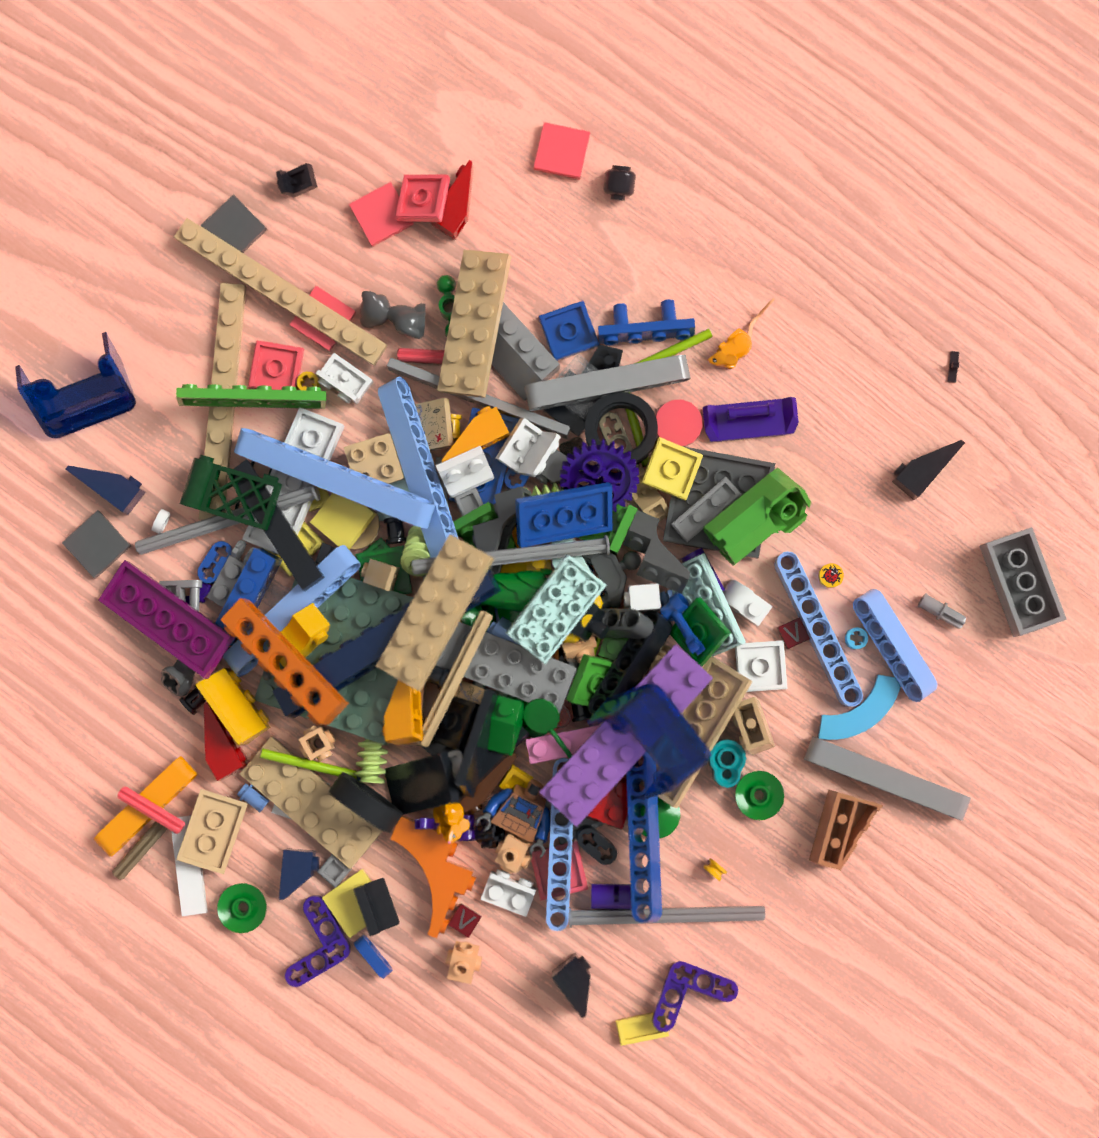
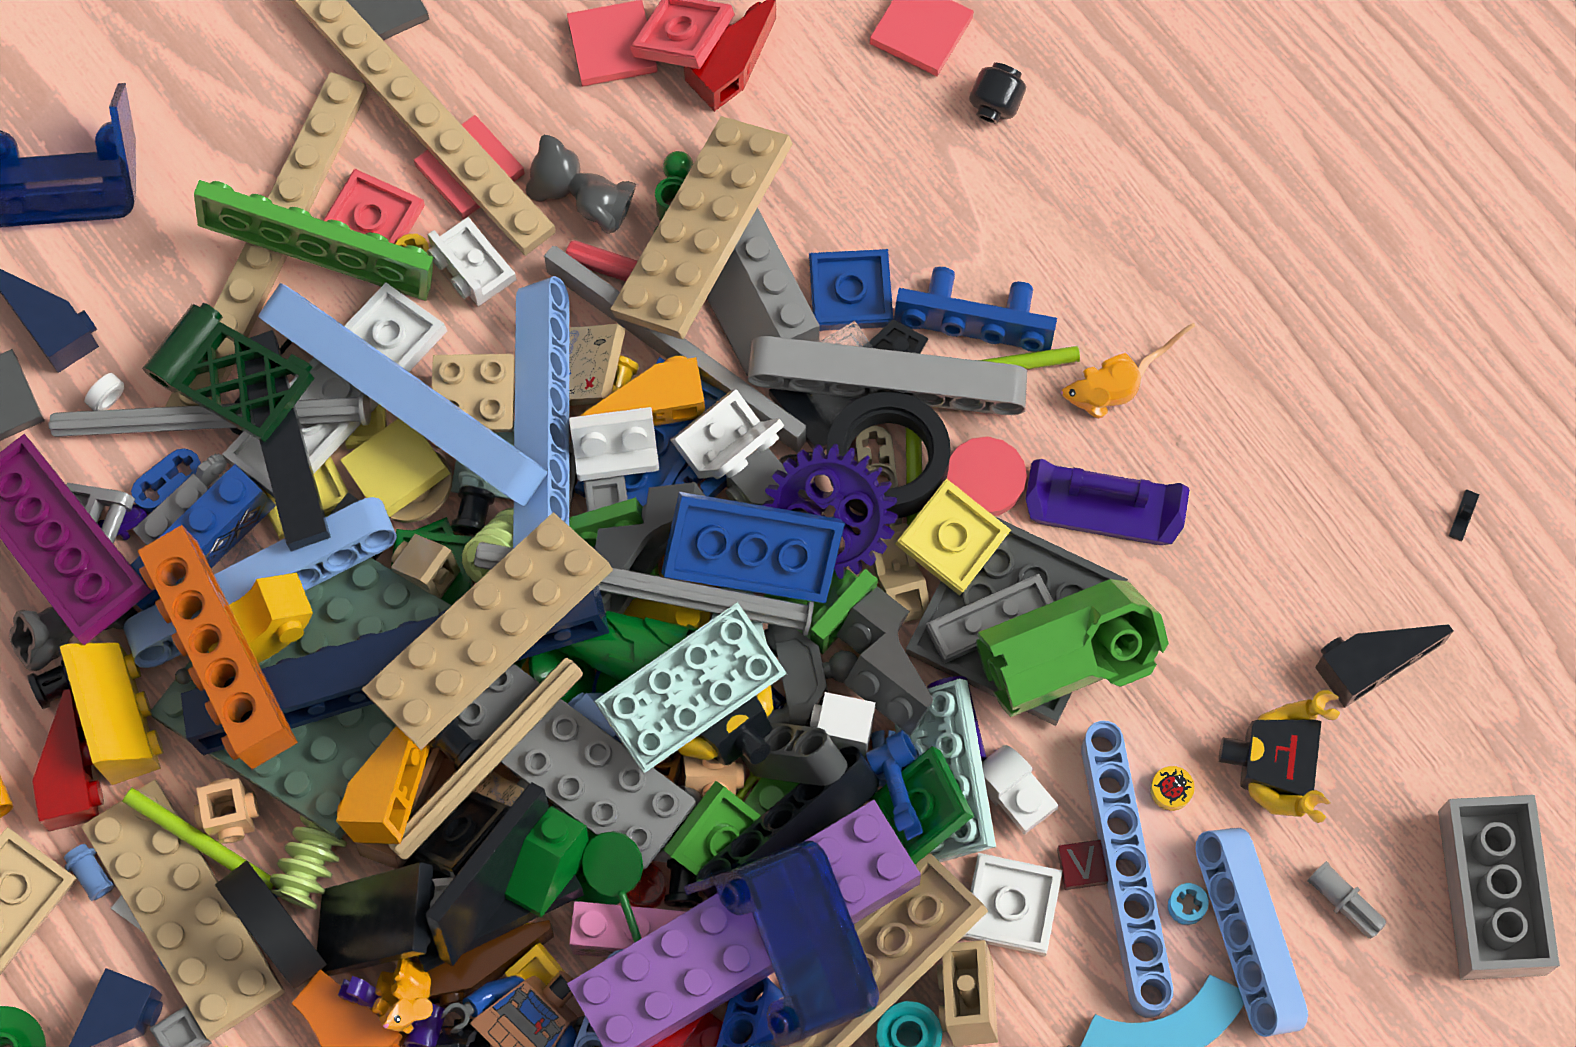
camera: 10 degrees right, 15 degrees down
(887, 542) = (1282, 757): none -> torso

